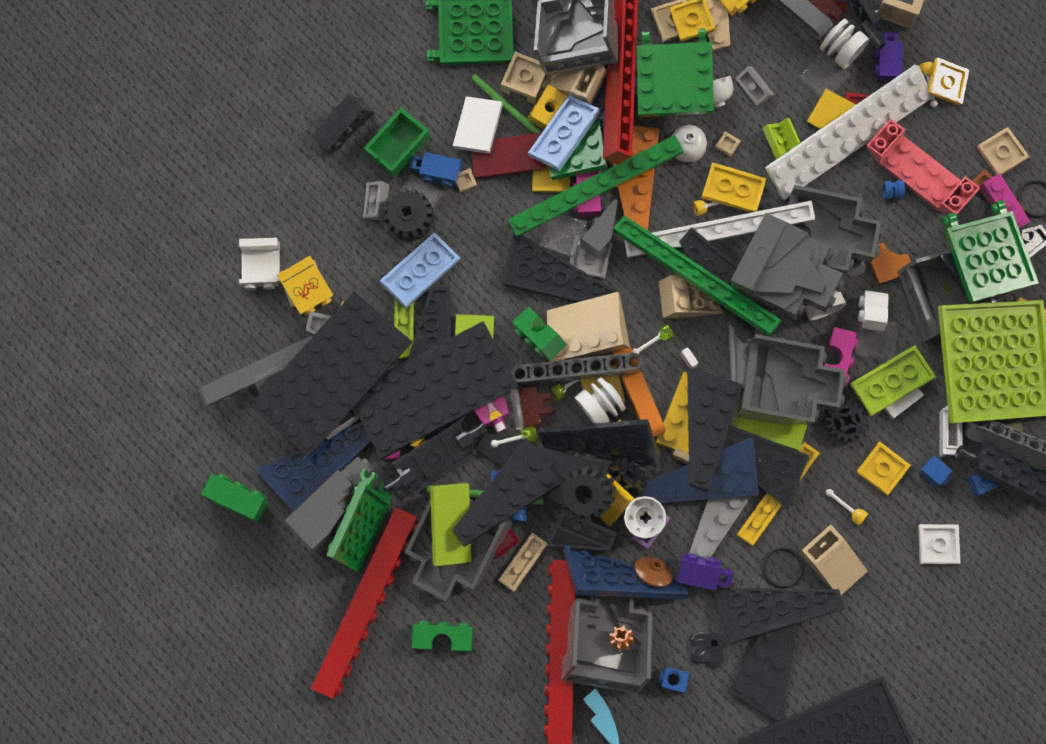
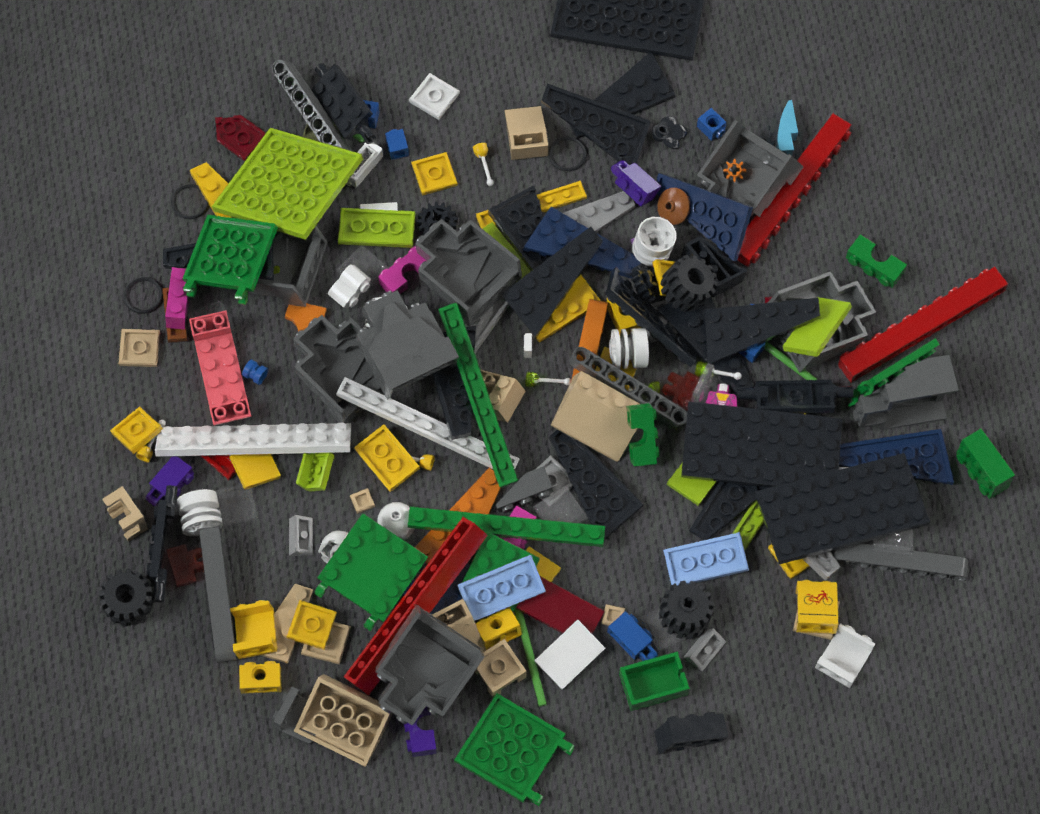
camera: 150 degrees left, 10 degrees down
(523, 562) = (772, 280): tan tile -> none
(681, 456) = (589, 276): tan tile -> none

